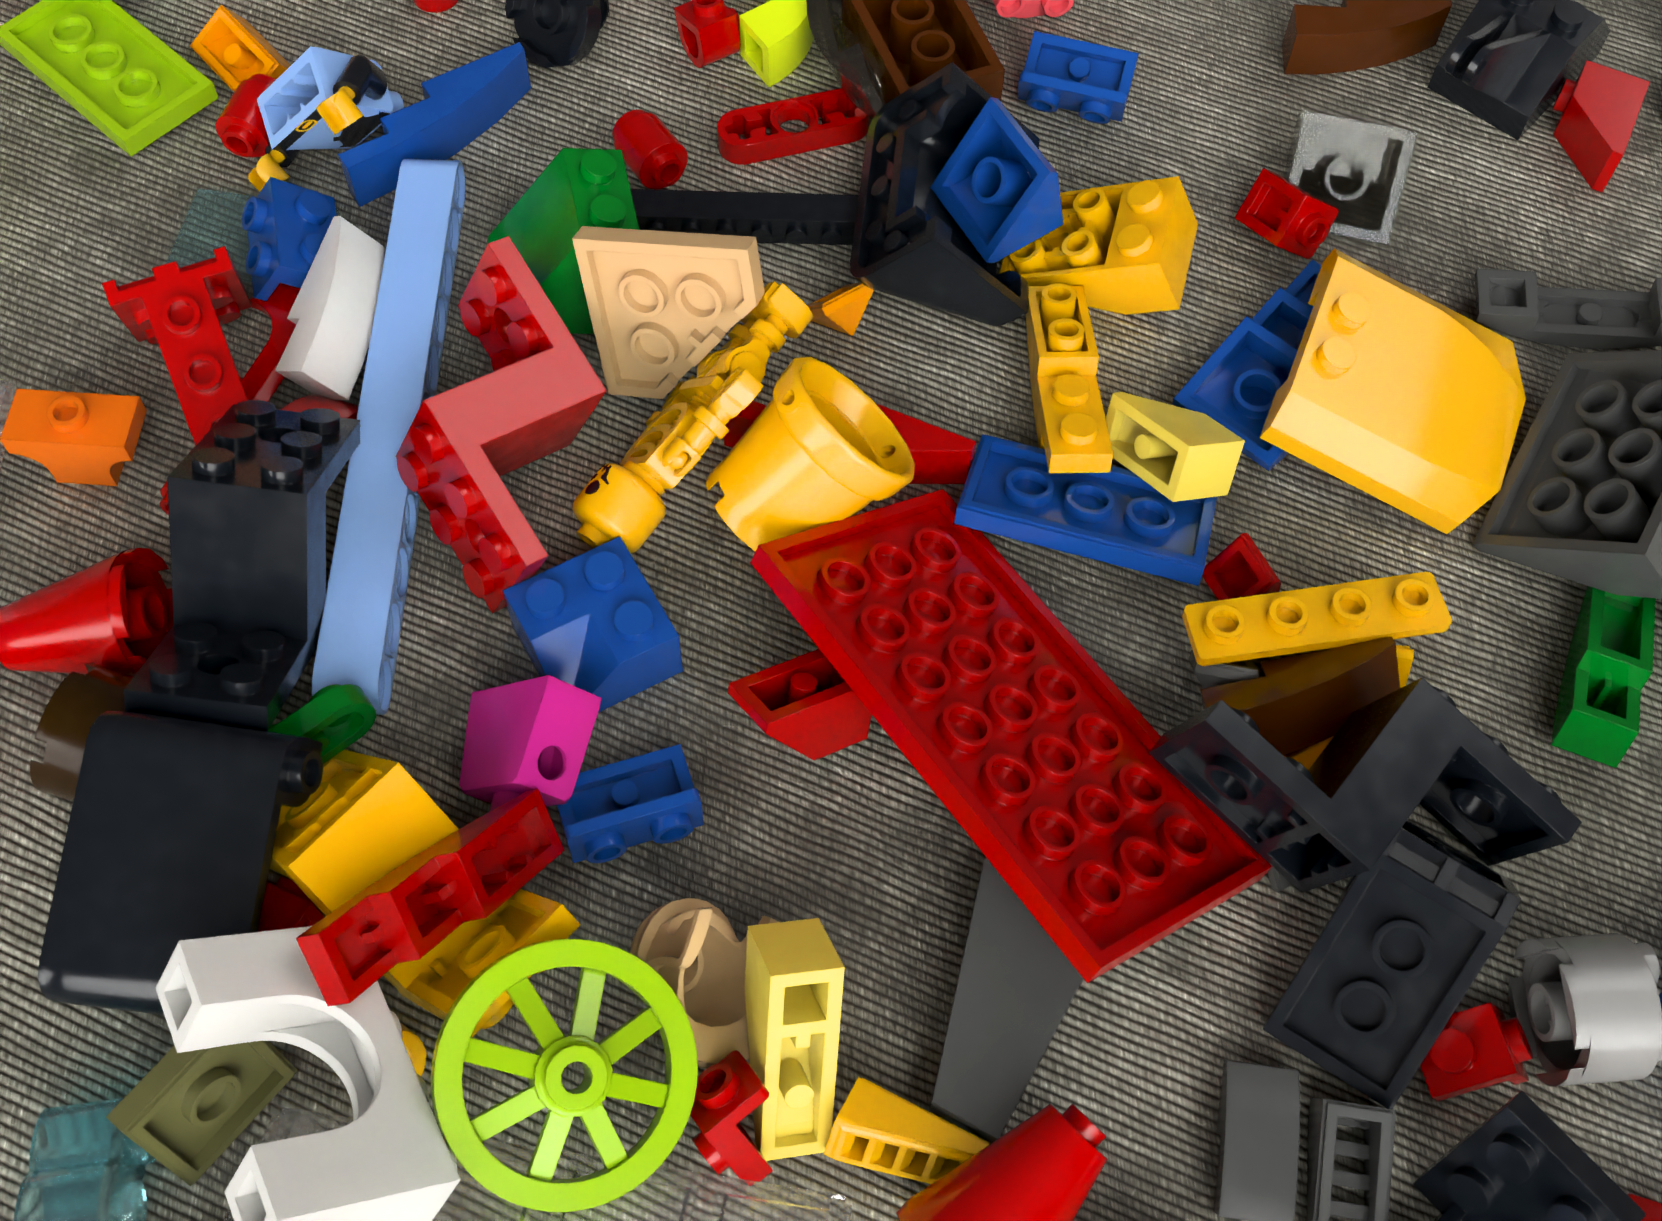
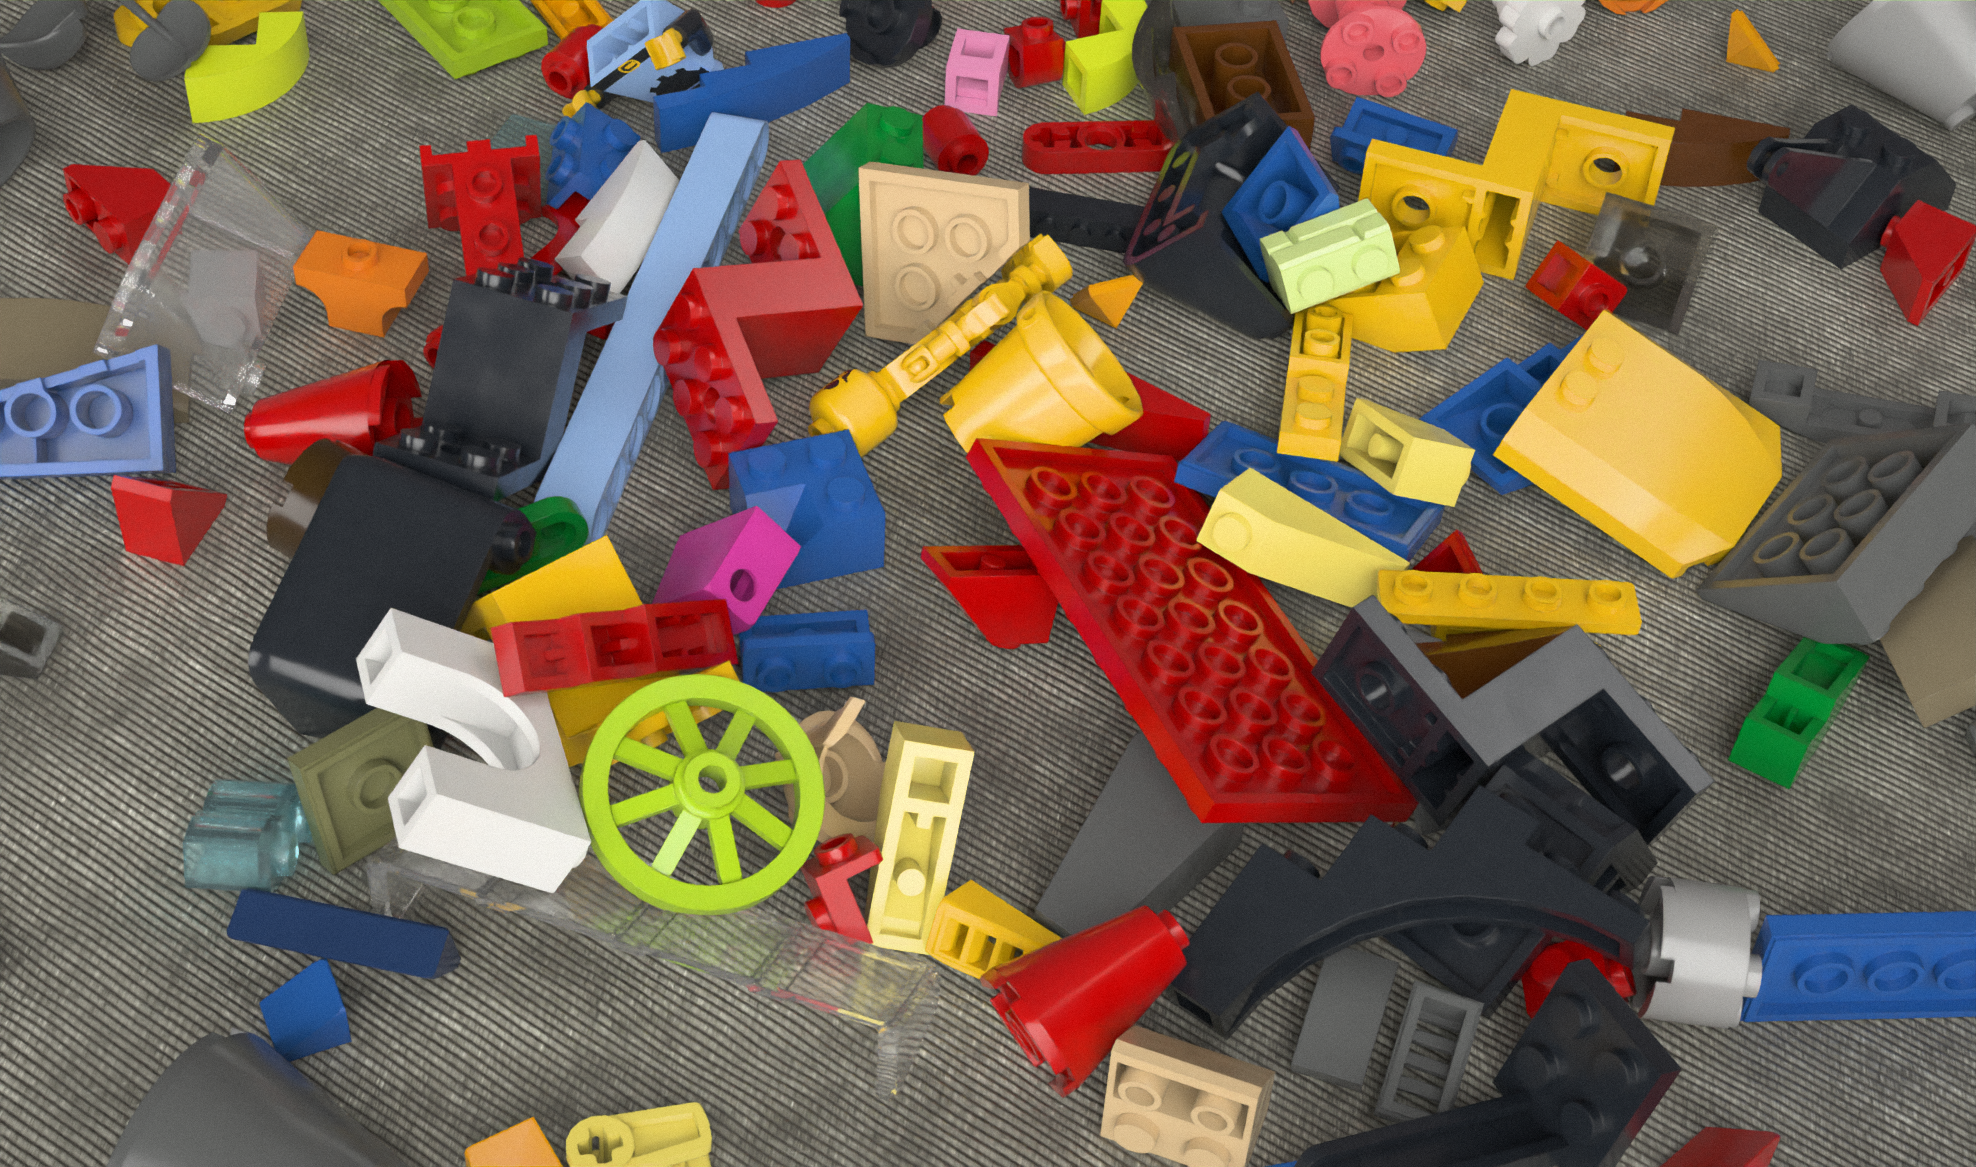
camera: 10 degrees right, 15 degrees down
(655, 60) = (976, 71): none -> bright pink brick
(1057, 236) = (1329, 255): none -> yellowish green brick
(1092, 581) = (1293, 541): none -> light yellow slope
(1223, 73) = (1536, 156): none -> yellow bracket
(1376, 982) = (1385, 881): none -> black arch

